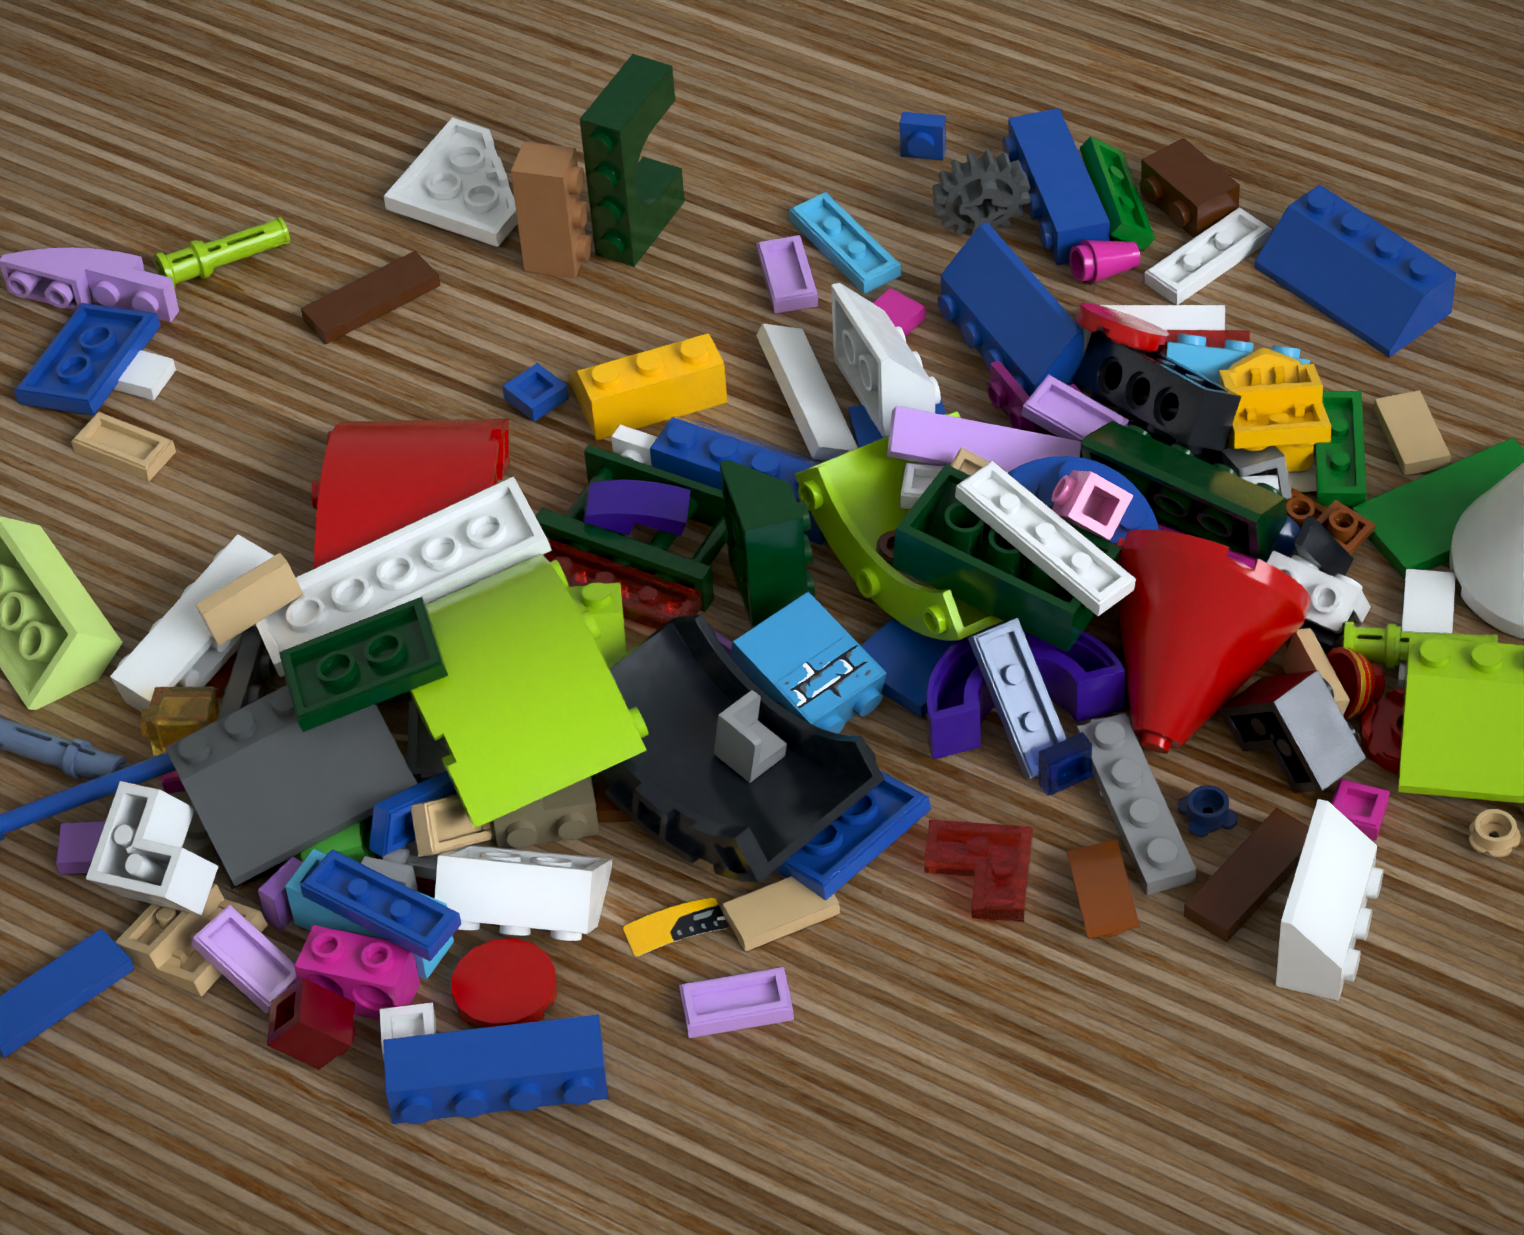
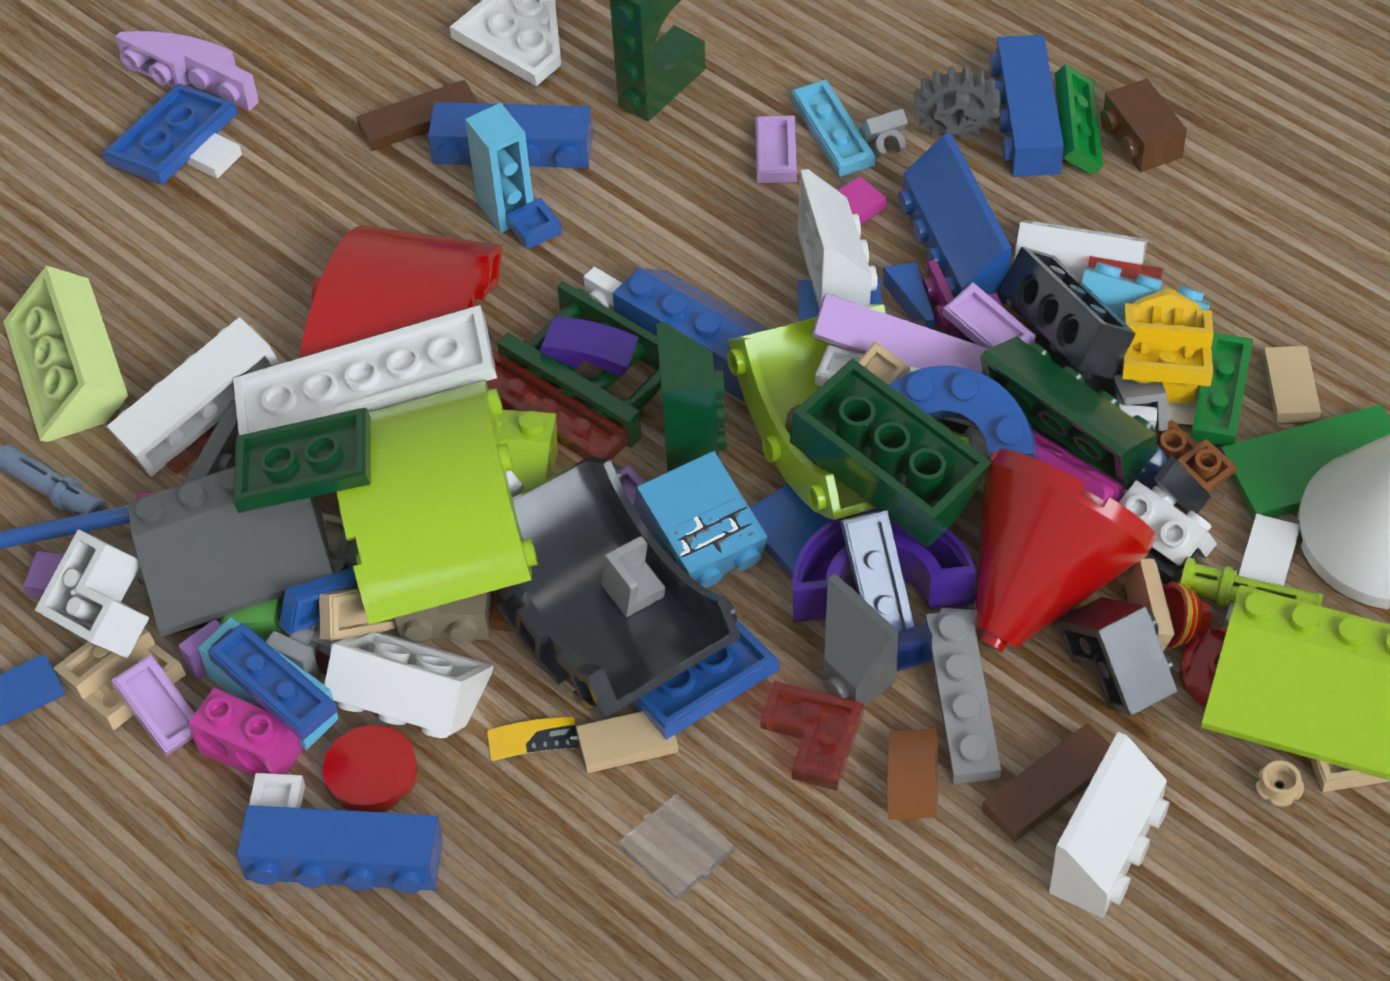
camera: 10 degrees right, 5 degrees up
(123, 446) = (180, 216): tan tile -> none
(176, 714) = (153, 471): clear yellow brick -> none
(202, 258) = (287, 59): lime pin -> none
(249, 599) = (231, 379): tan tile -> none
(311, 1023) = (193, 777): dark red brick -> none
(485, 302) = (553, 133): none -> blue brick
(488, 330) = (499, 163): none -> medium azure brick
(550, 209) = (580, 58): medium nougat brick -> none
(651, 386) = (632, 233): yellow slope -> none
(736, 1002) = (566, 821): lavender tile -> none
(806, 391) = (765, 261): white tile -> none
(863, 1007) = (676, 846): none -> clear piece
(904, 233) = (885, 128): none -> light grey tile
(922, 135) = (921, 41): blue plate -> none
(973, 398) = (908, 290): none -> blue piece
(1012, 765) = (858, 646): none -> dark grey slope
(1045, 538) = (924, 443): white tile -> none
(1090, 502) = (971, 417): bright pink brick -> none
(1100, 260) = (1050, 178): dark pink cone -> none
(1122, 327) = (1047, 249): red tile -> none
(1207, 256) = (1146, 189): white tile -> none
(1207, 810) = (1024, 703): dark blue plate -> none
(1357, 271) = (1275, 225): blue slope -> none
(1362, 805) = (1162, 736): dark pink tile -> none

